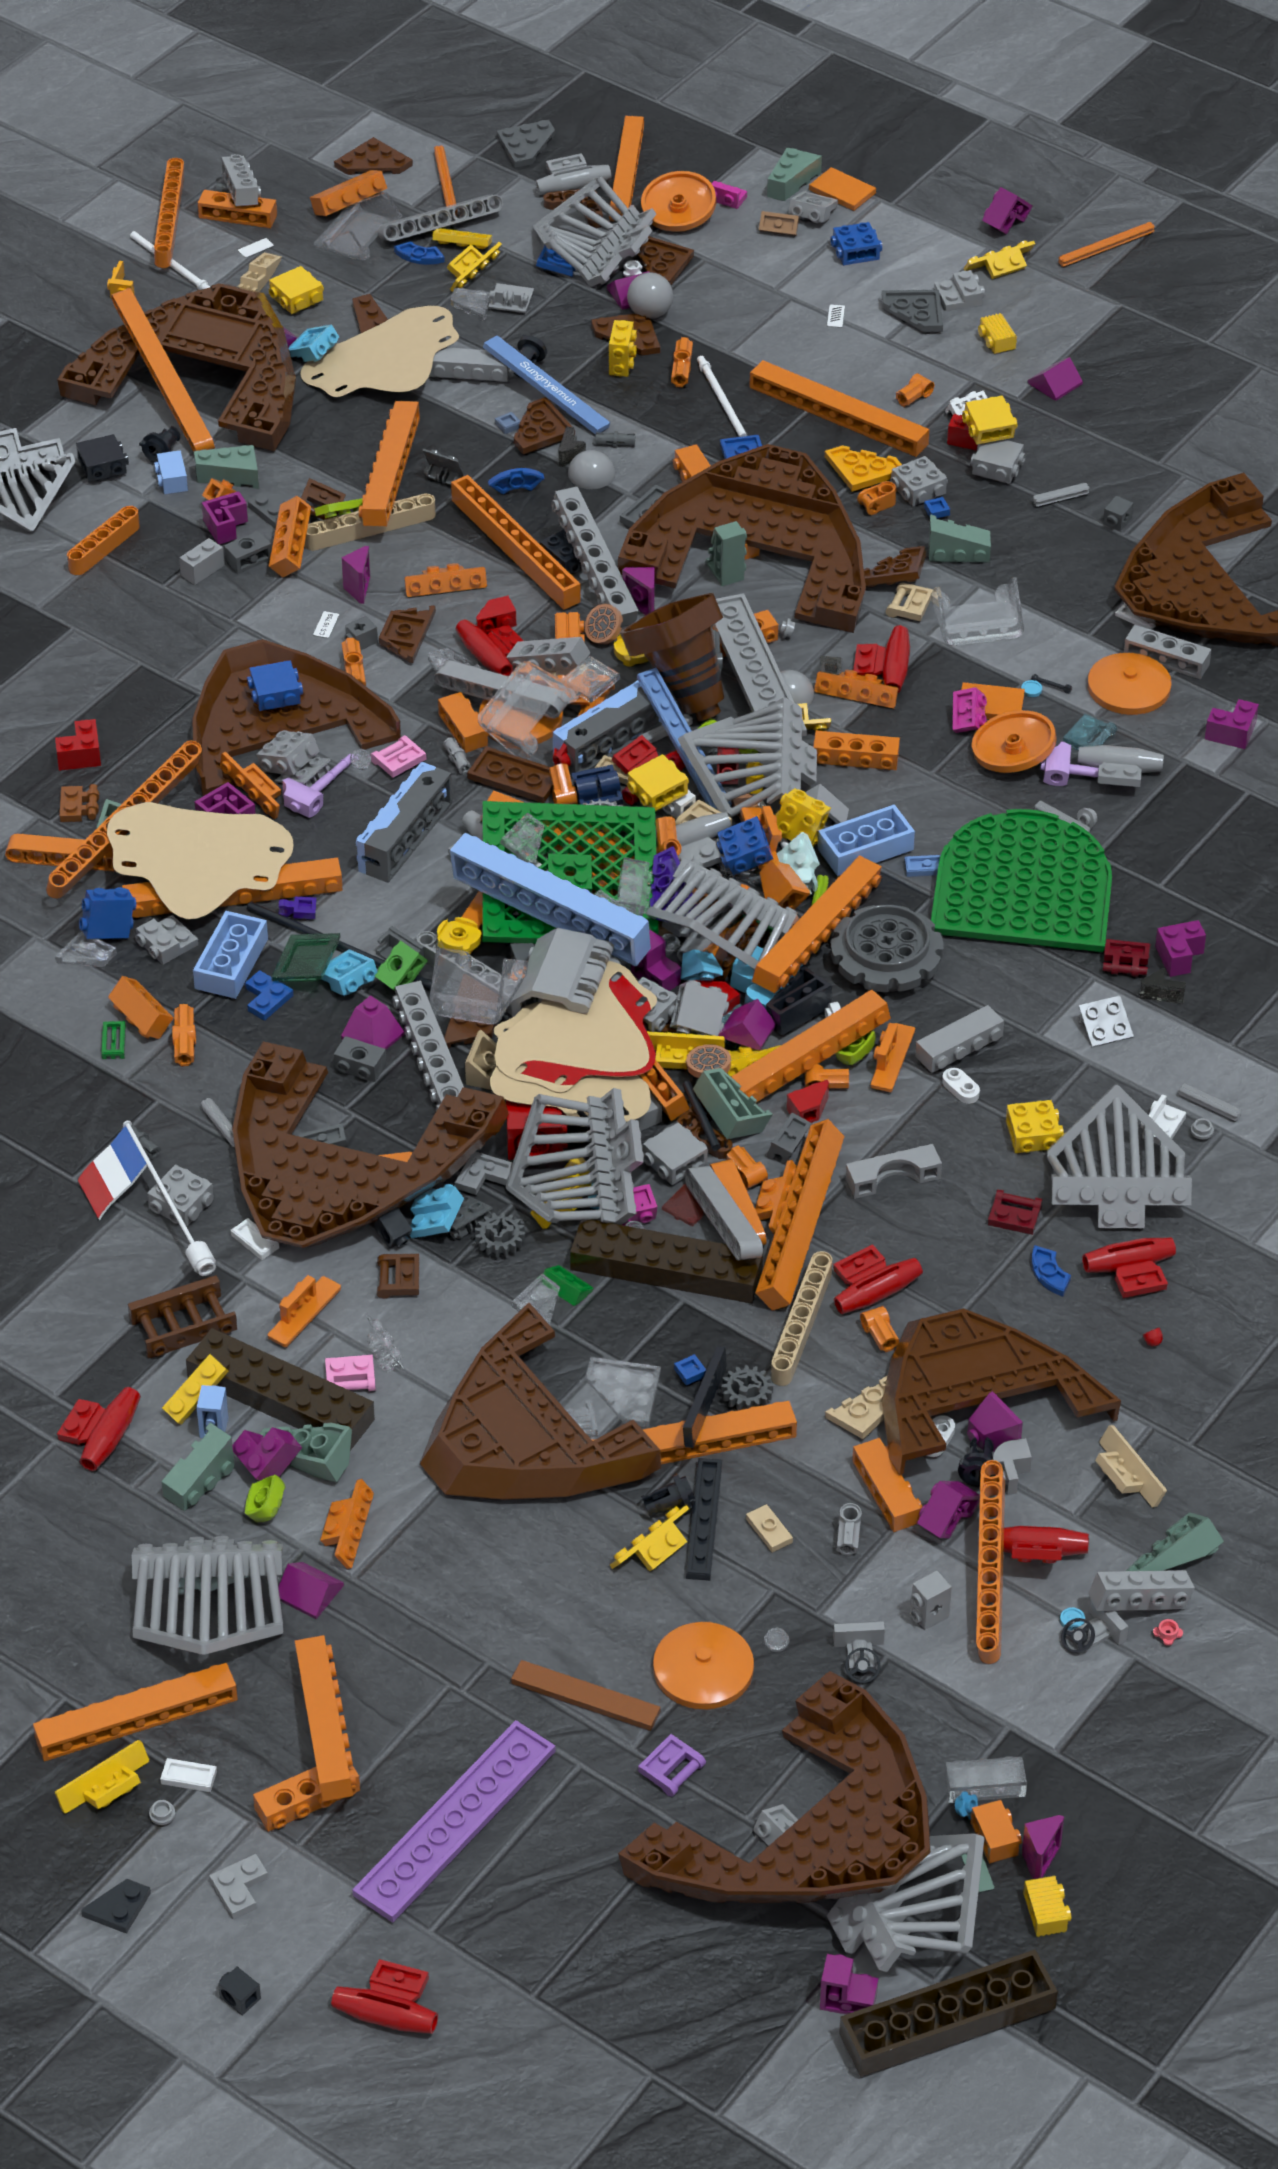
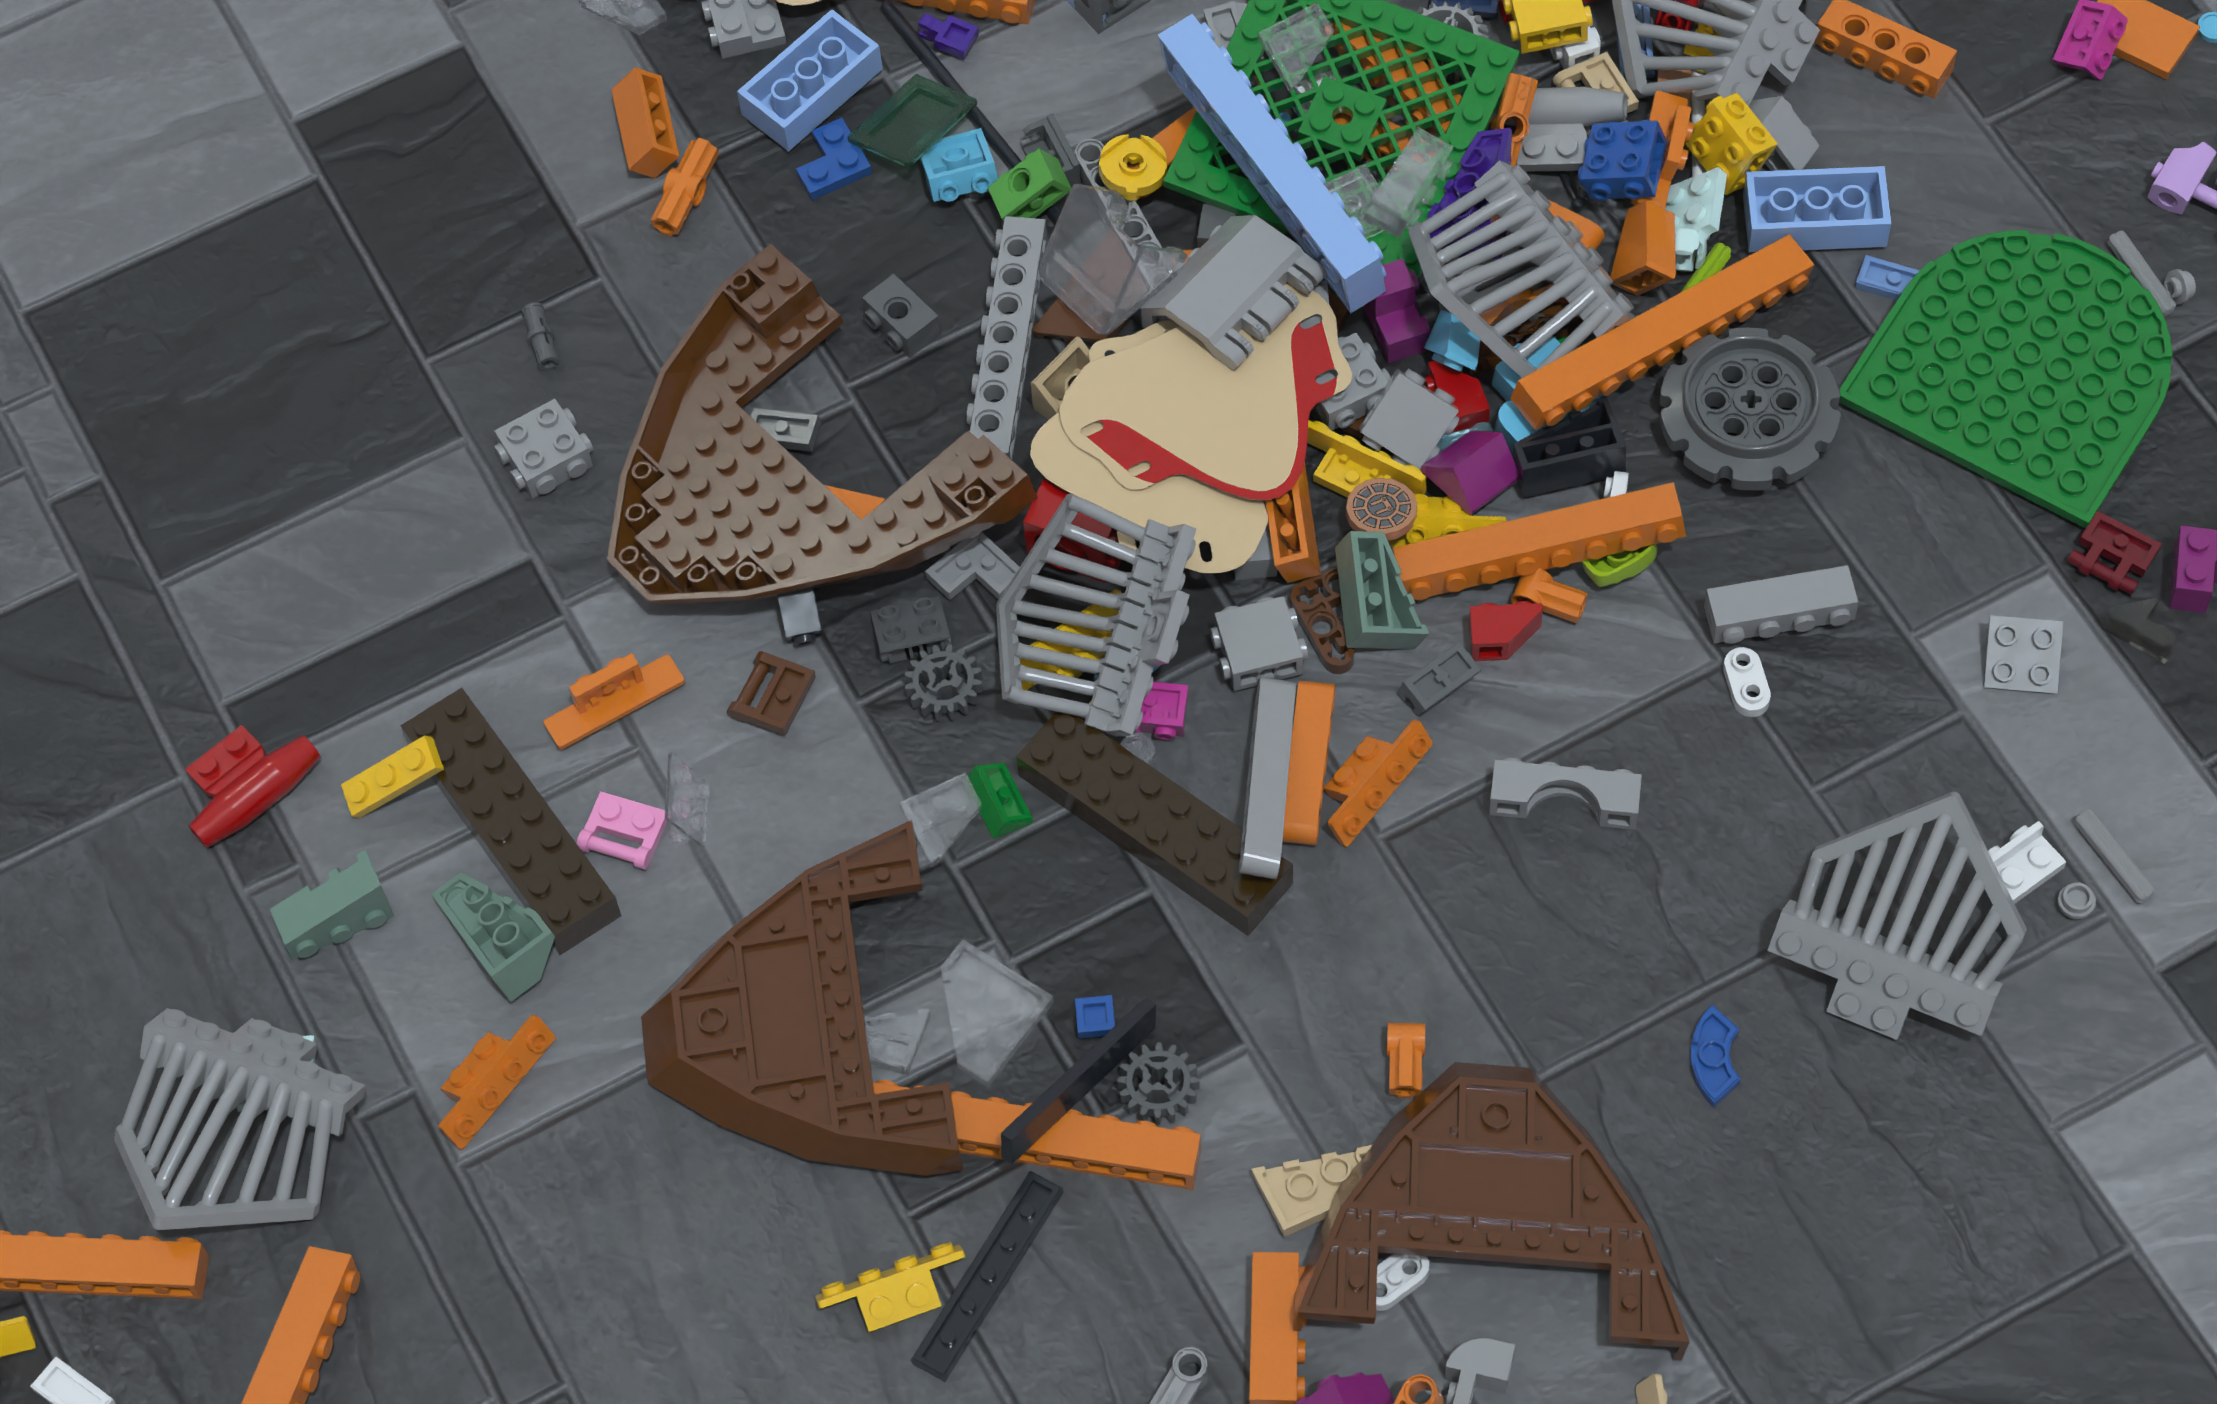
camera: 30 degrees right, 15 degrees up
(113, 1052) = (601, 164): green tile -> none
(116, 1171) = (465, 383): flag -> none
(177, 1299) = (444, 615): reddish brown fence -> none
(212, 1408) = (394, 823): light blue brick -> none
(218, 1119) = (662, 333): light grey axle -> none
(250, 1237) = (598, 541): white tile -> none
(265, 1498) = (398, 991): lime piece -> none
(266, 1454) = (429, 921): magenta brick -> none
(307, 1588) = (385, 1158): magenta slope -> none
(373, 1024) = (945, 269): magenta slope -> none
(435, 1211) = (870, 611): medium azure plate -> none
(669, 1496) = (966, 1223): black piece -> none
(684, 1207) = (1232, 732): clear red piece -> none
(698, 1109) = (1329, 596): black bar -> none
(749, 1170) = (1354, 712): orange piece -> none
(769, 1528) = (1071, 1331): tan plate -> none
(800, 1215) = (1384, 819): orange brick -> none
(801, 1318) = (1296, 1010): tan beam -> none
(871, 1278) = (1437, 967): red plate -> none
(891, 1055) = (1666, 591): orange bracket -> none
(970, 1464) = (1422, 1356): black piece -> none
(994, 1421) = (1477, 1300): magenta slope -> none
(1013, 1217) = (1708, 943): dark red plate -> none
(1014, 741) = (2131, 115): orange dish -> none
(1033, 1125) = (1817, 797): yellow brick -> none
(1133, 1264) = (1844, 1099): red plate -> none
(1153, 1337) = (1809, 1238): red hinge -> none

